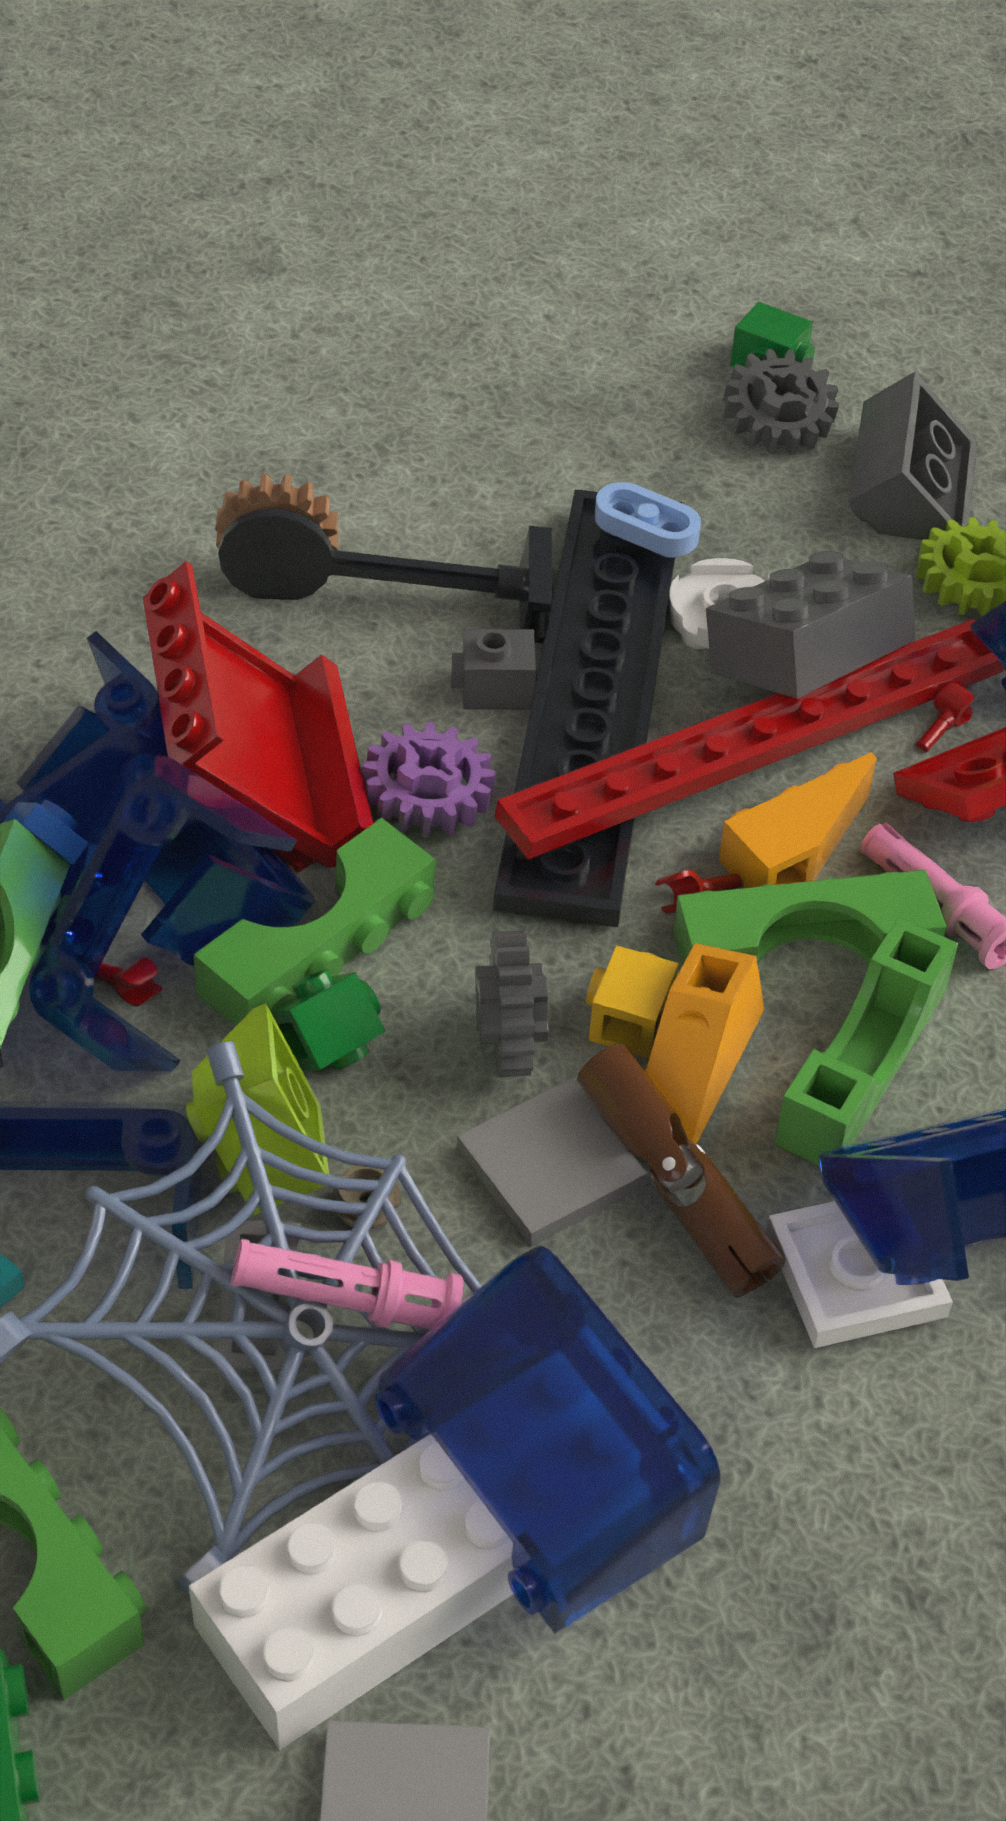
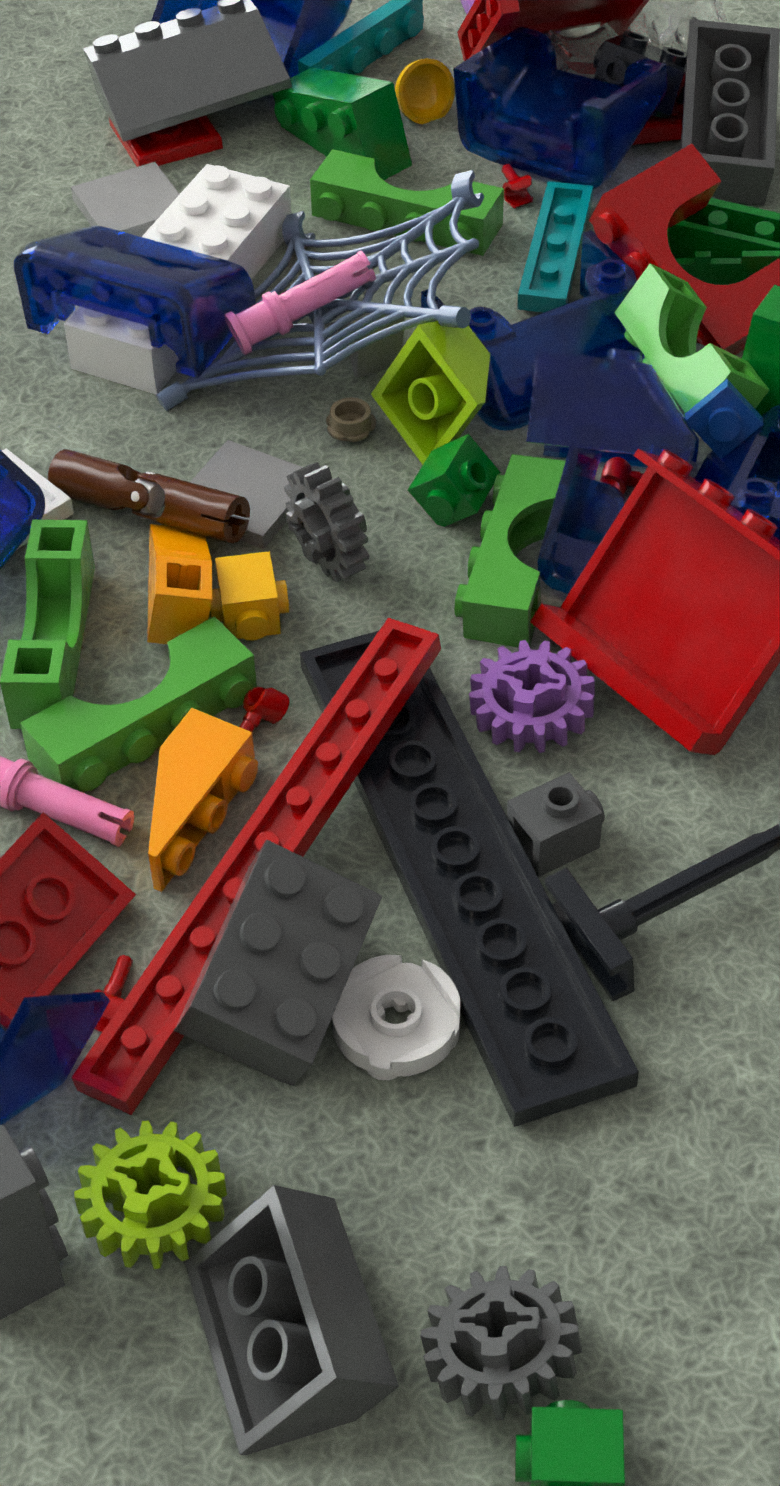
camera: 155 degrees right, 0 degrees up
(647, 519) = (524, 1029): light blue plate -> none

